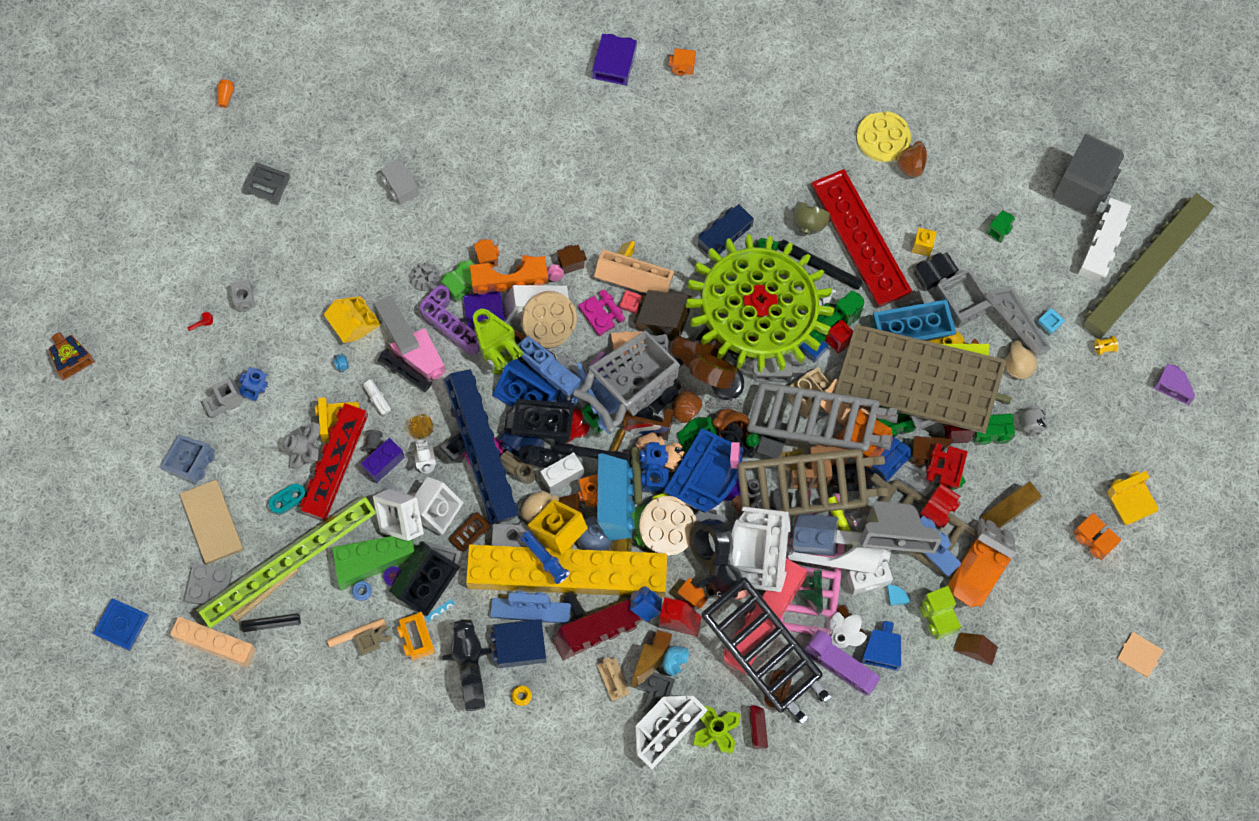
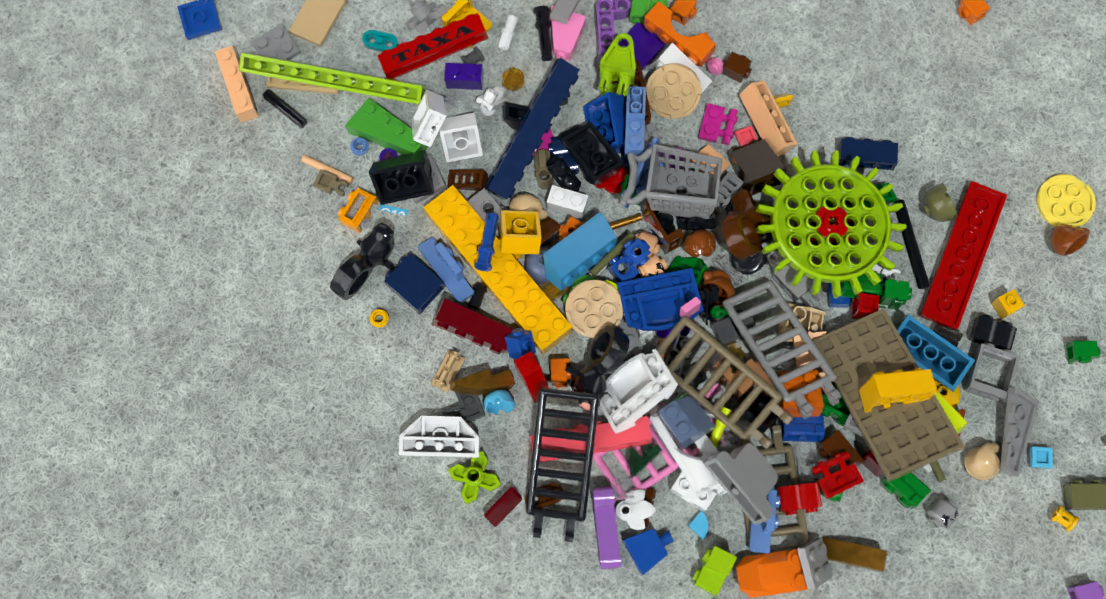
camera: 55 degrees right, 5 degrees up
(568, 449) = (592, 193): black piece -> none
(925, 366) = (897, 387): none -> yellow wedge

